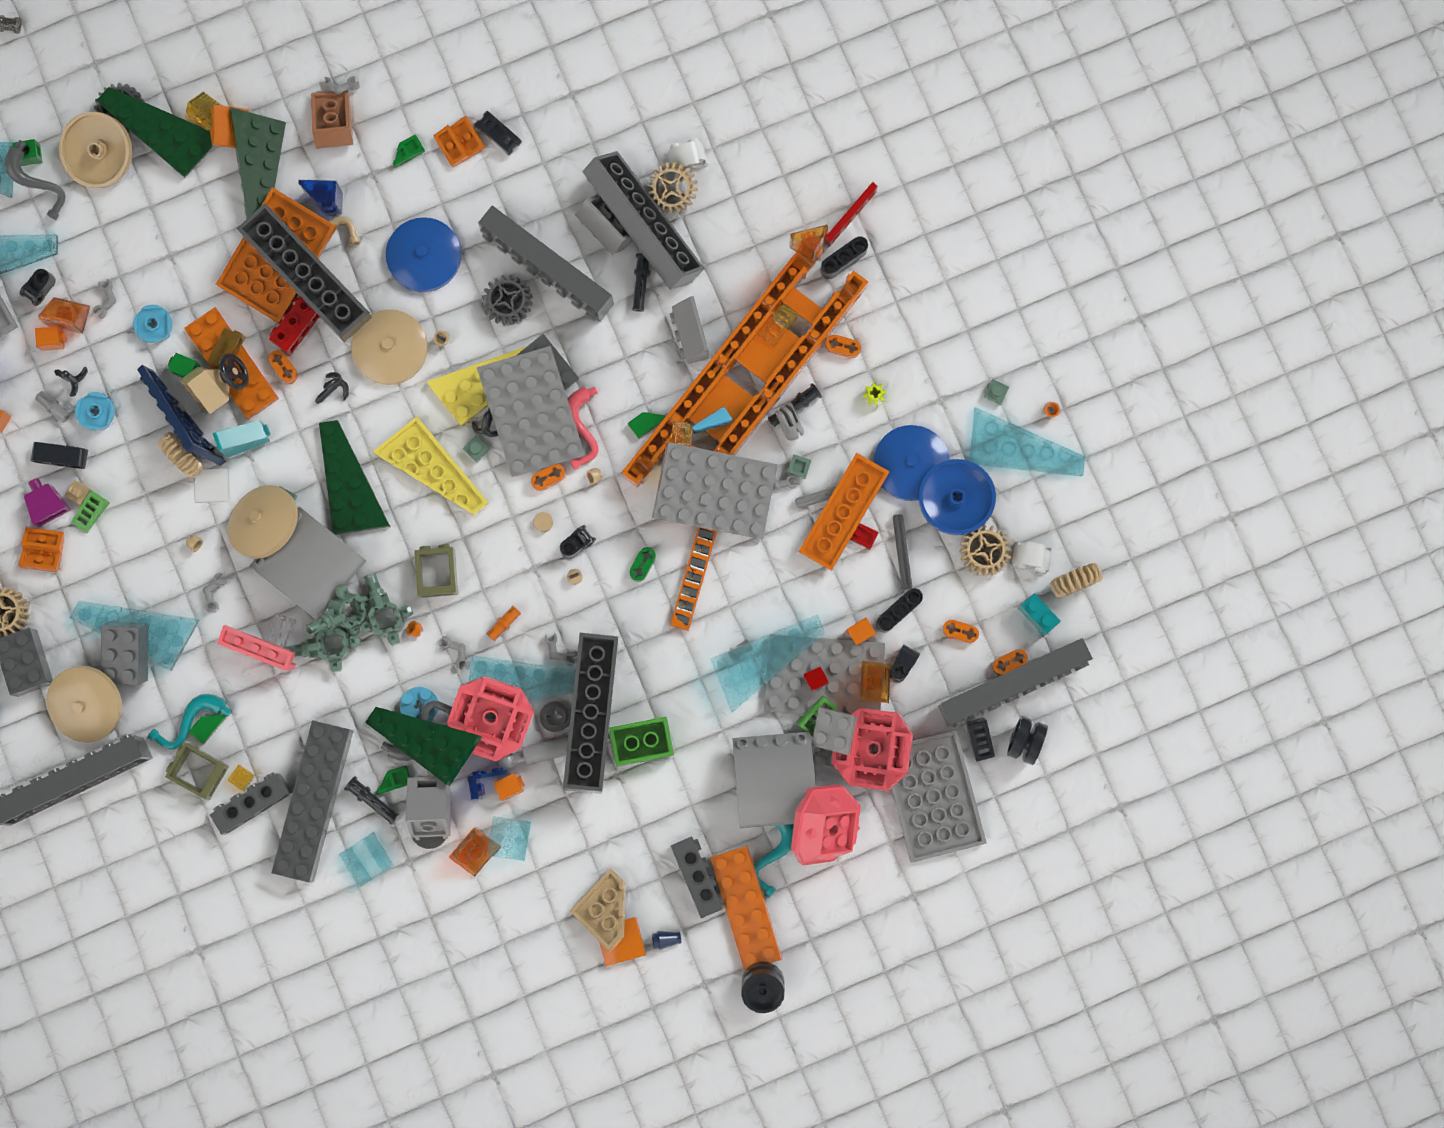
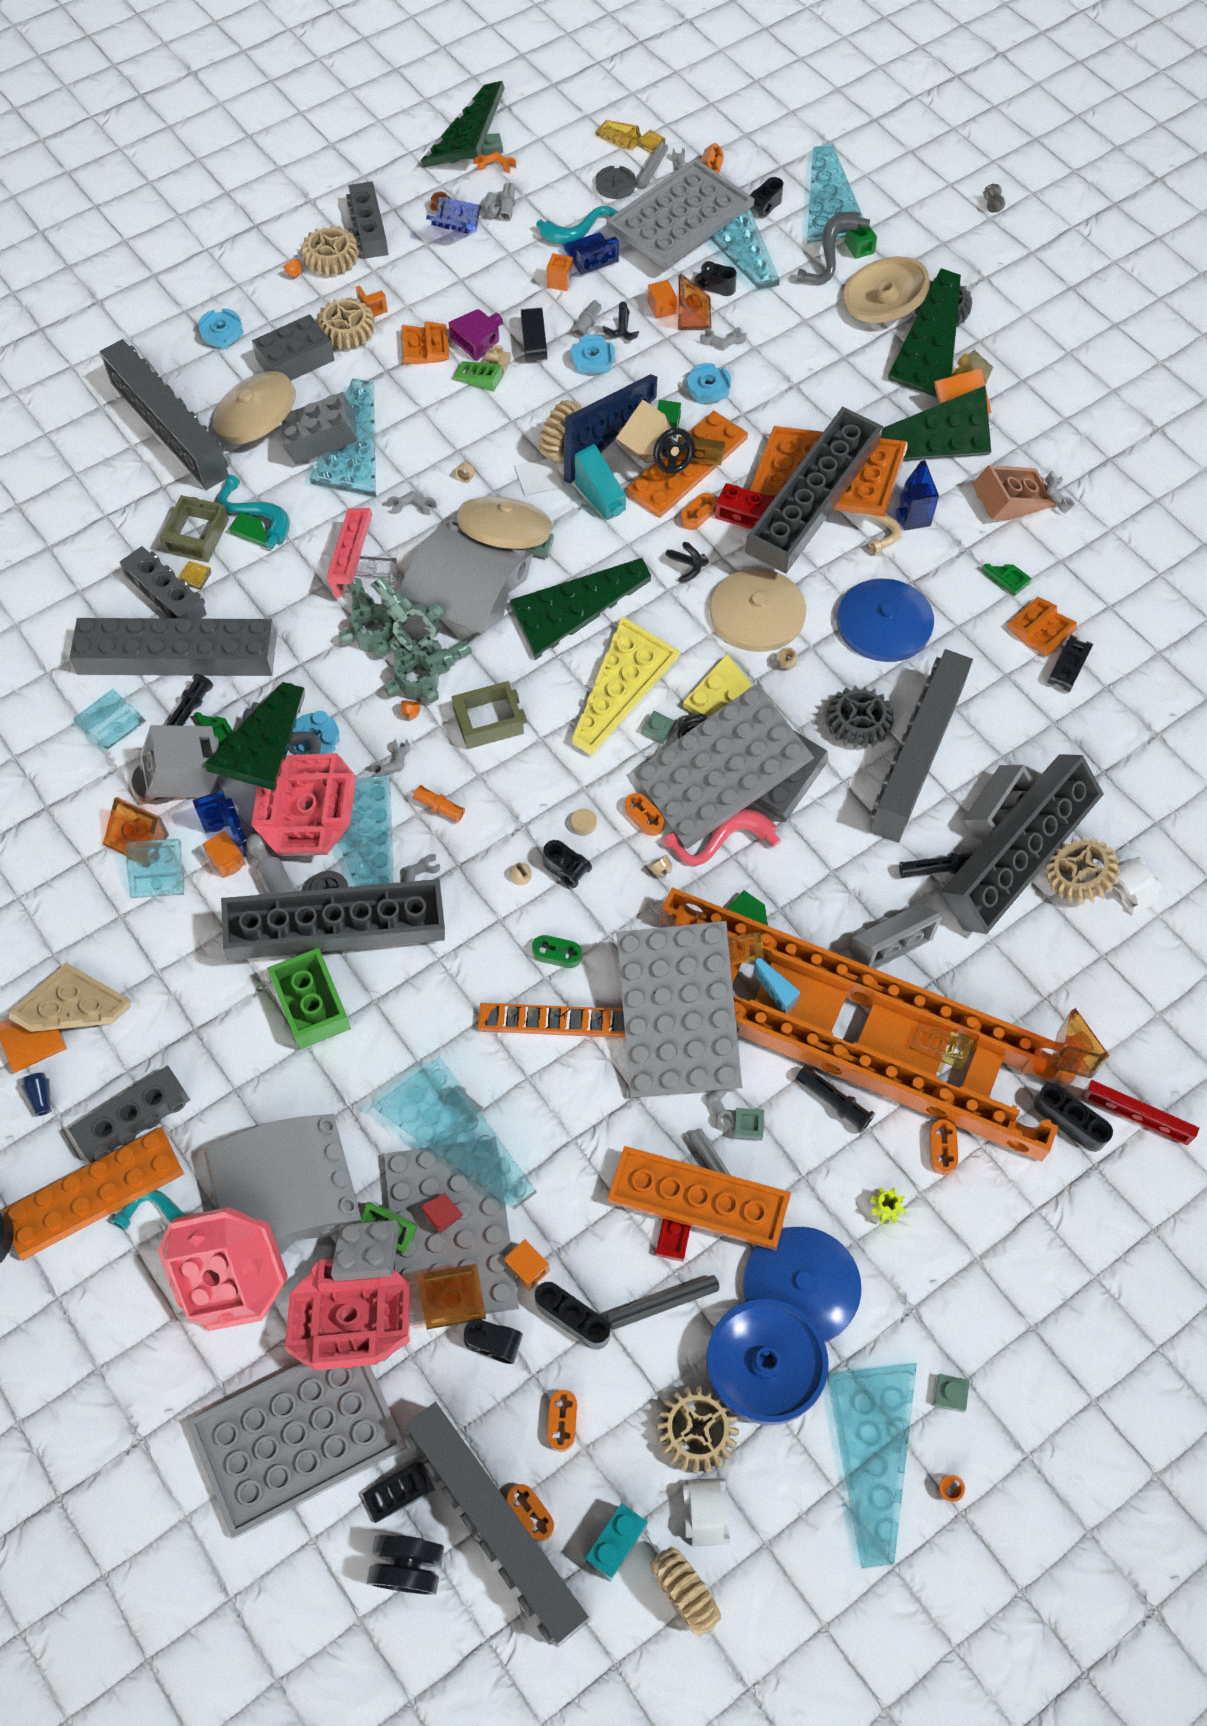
camera: 75 degrees right, 20 degrees down
(789, 421) = (805, 1095): light grey arm -> none

